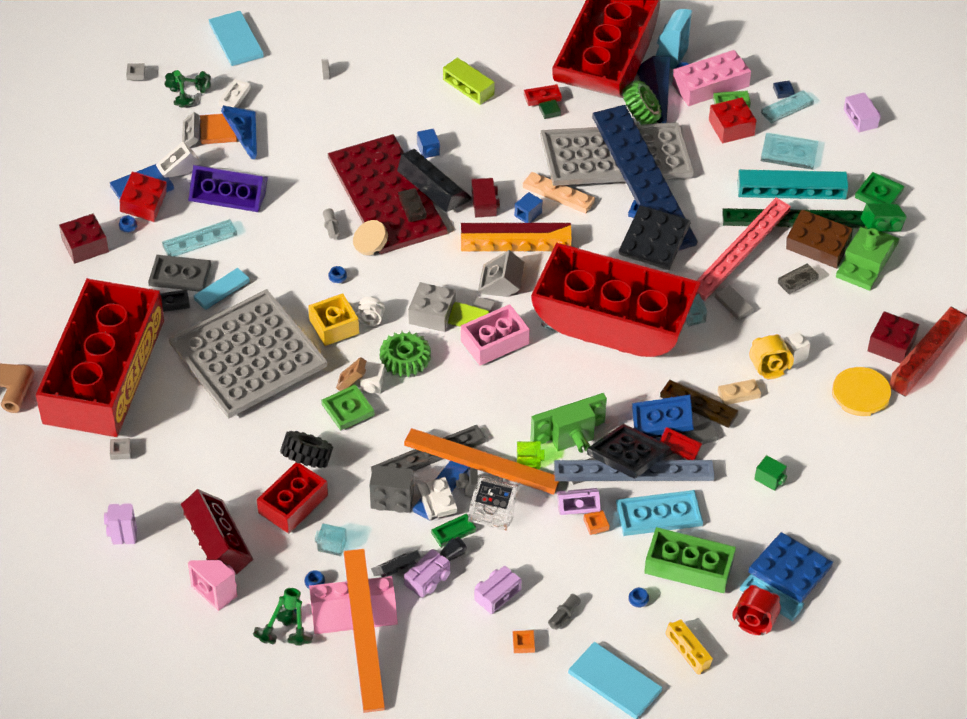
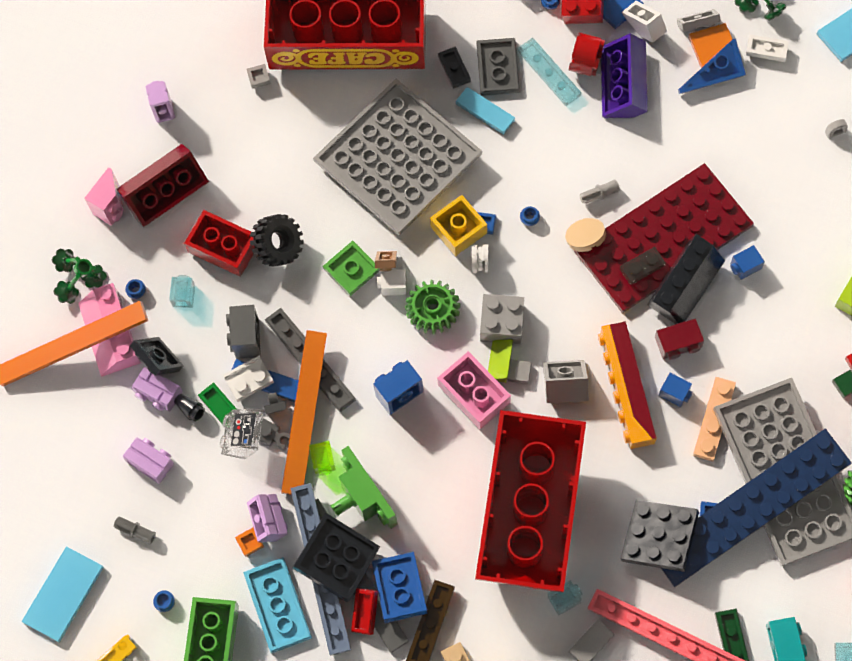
camera: 85 degrees right, 20 degrees up
(198, 203) = (586, 54): none -> red brick
(478, 384) = (398, 386): none -> blue brick
(523, 641) = (92, 497): orange plate -> none

